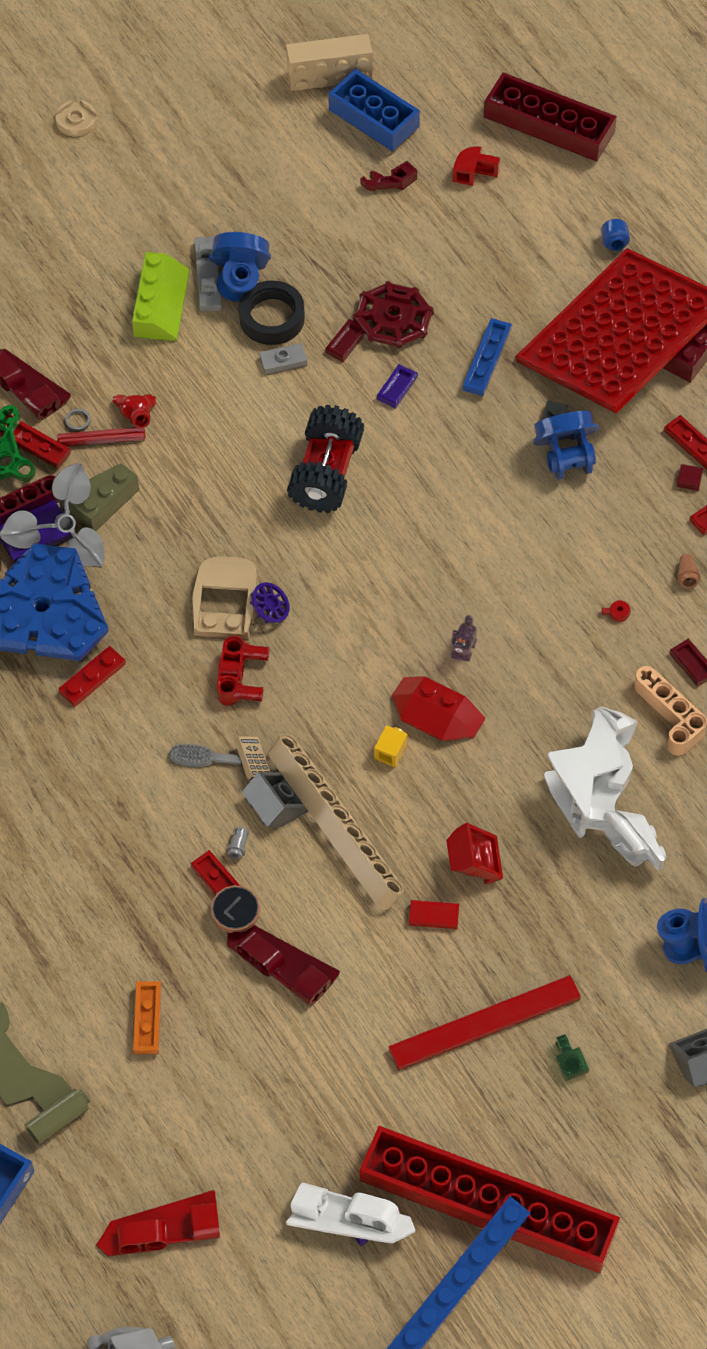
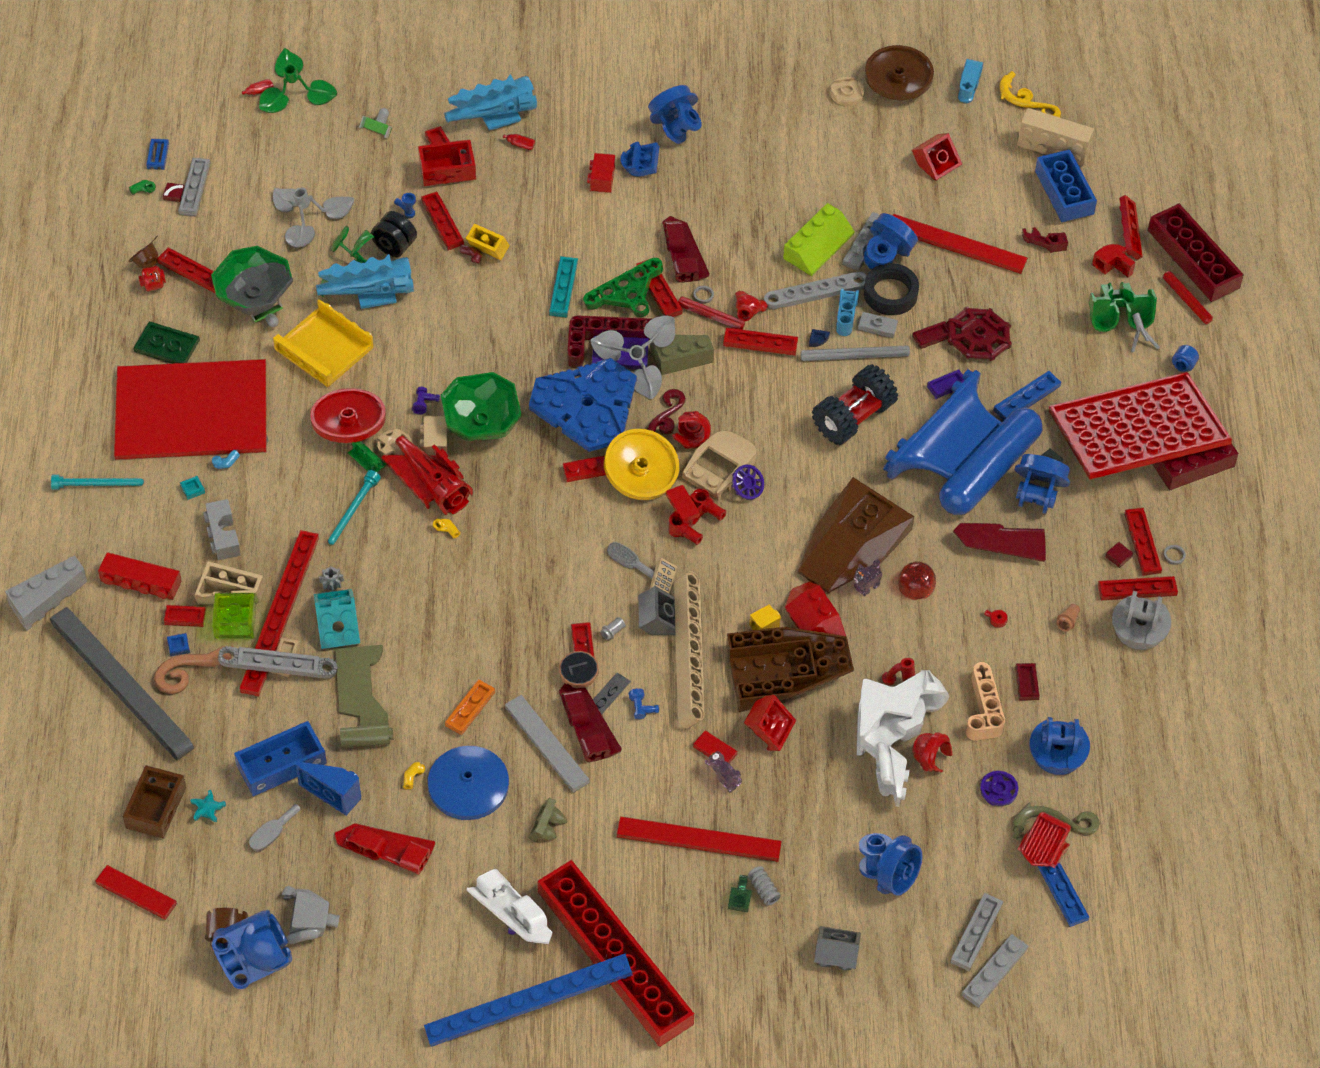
camera: 30 degrees right, 5 degrees down
(26, 1284) = (271, 830): none -> light grey piece
(63, 1194) = (330, 784): none -> blue slope
(120, 71) = (899, 72): none -> reddish brown dish
(129, 582) = (662, 418): none -> dark red plant
(133, 1129) = (415, 768): none -> yellow arm
(146, 644) = (641, 464): none -> yellow dish
(175, 440) = (760, 341): none -> red plate
(175, 575) = (694, 429): none -> red helmet
(193, 354) = (814, 290): none -> light grey plate
(196, 43) = (969, 80): none -> dark azure piece
(207, 1122) = (468, 782): none -> blue dish
(220, 142) = (937, 156): none -> red slope
(222, 664) = (682, 503): none -> red tile
(231, 405) = (818, 338): none -> dark blue tile
(242, 361) = (847, 306): none -> dark azure piece
(255, 1010) = (547, 743): none -> light grey tile
(263, 30) = (1027, 95): none -> yellow plant
(280, 402) = (855, 353): none -> light grey axle
(281, 914) = (610, 692): none -> flat silver sticker
(310, 1090) = (547, 813): none -> olive tile
(315, 902) = (637, 696): none -> blue piece
(317, 226) = (966, 246): none -> red tile
(417, 603) = (851, 533): none -> reddish brown wedge
(443, 782) = (784, 662): none -> reddish brown wedge
(463, 118) = (1130, 227): none -> red plate
(463, 934) = (724, 771): none -> animal
(469, 443) = (966, 446): none -> blue piece
(508, 228) = (1105, 311): none -> green piece
(512, 615) = (917, 580): none -> clear red cylinder
(550, 224) = (1140, 328): none -> light grey plant
(571, 168) = (1187, 297): none -> red axle
(574, 718) = (907, 670): none -> red plant
(579, 521) = (995, 538): none -> dark red panel
(586, 1034) = (763, 885): none -> light grey piece
(651, 790) = (926, 747): none -> red helmet

